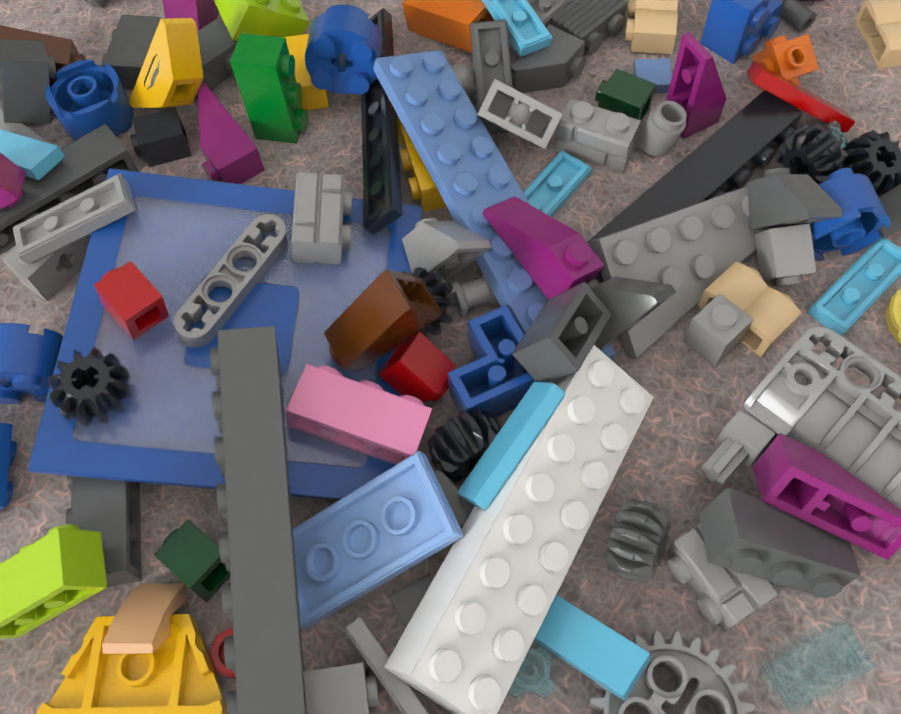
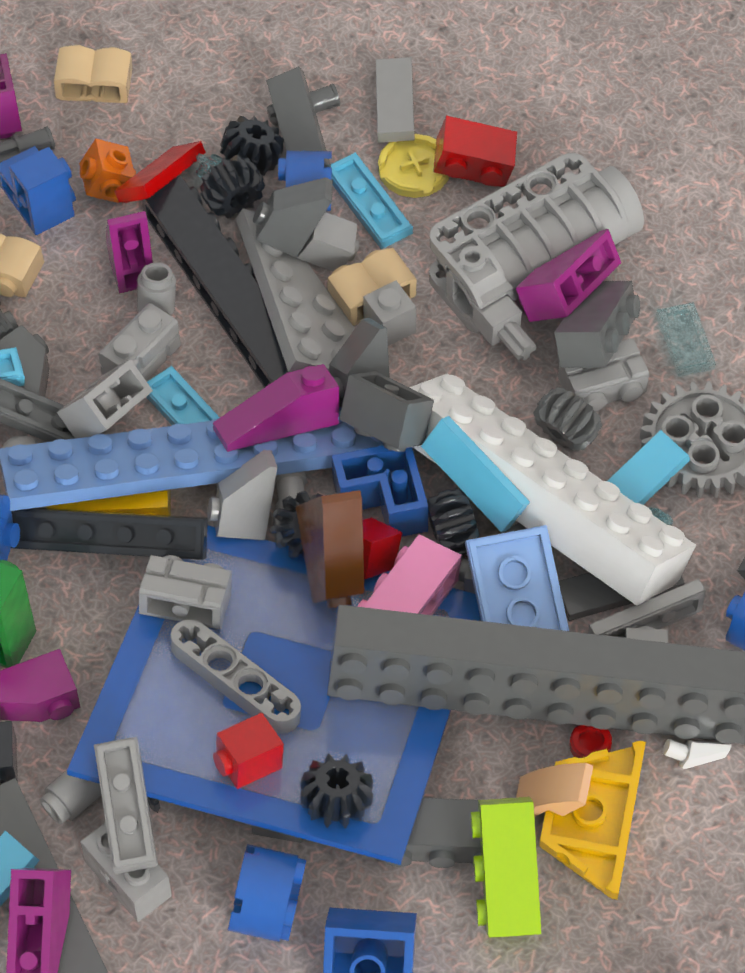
camera: 80 degrees left, 5 degrees down
(194, 560) = (505, 755): dark green brick -> none
(626, 94) = (100, 315): dark green brick -> none
(655, 71) = (68, 286): medium blue tile -> none

